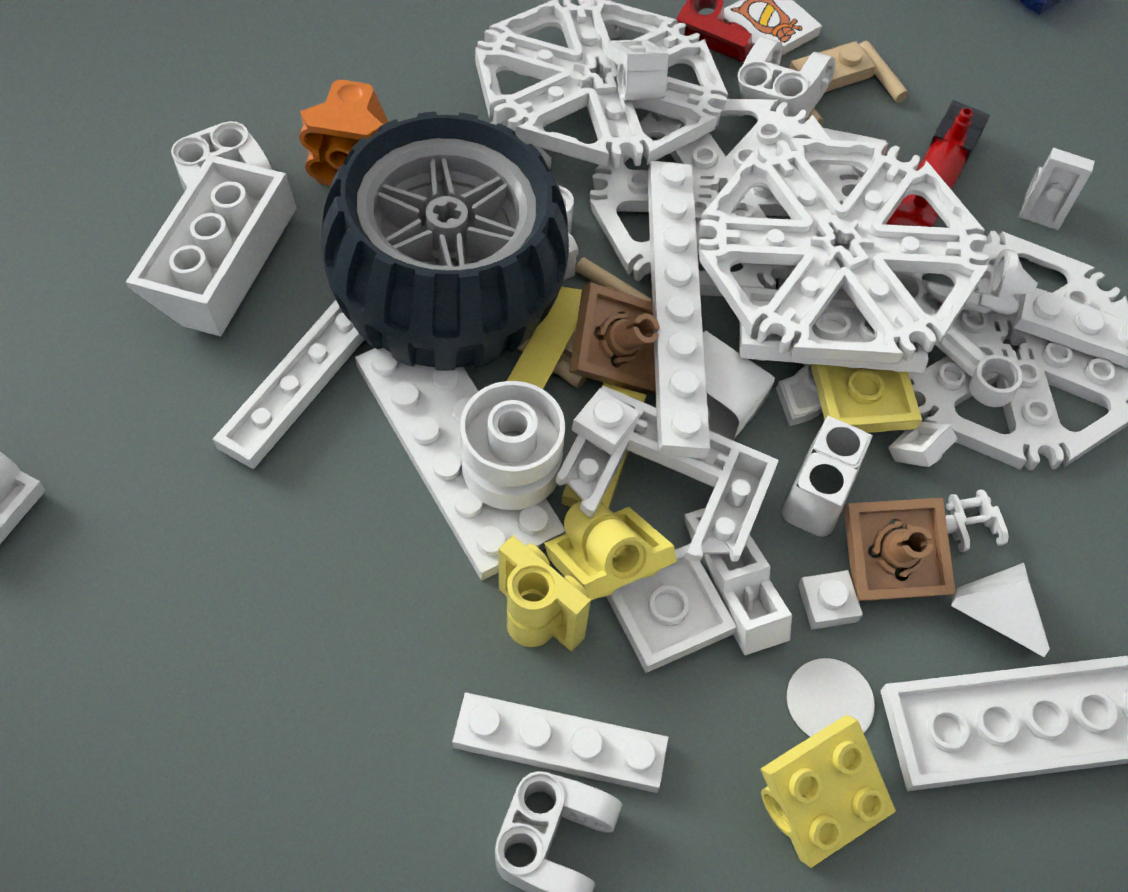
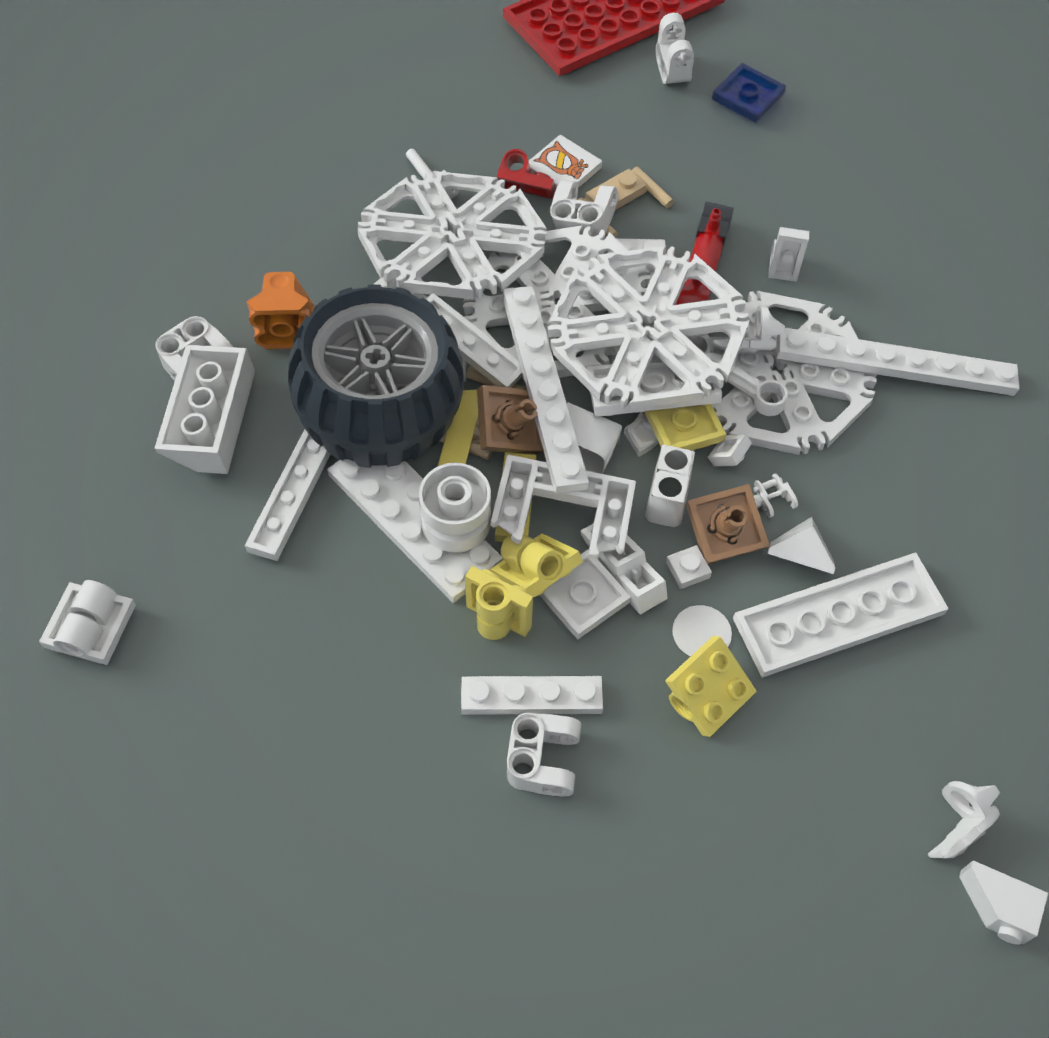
camera: 10 degrees left, 0 degrees up
(598, 233) = (478, 348): none -> white plate
(605, 421) = (515, 478): white plate -> none
(640, 69) = (481, 222): white plate -> none

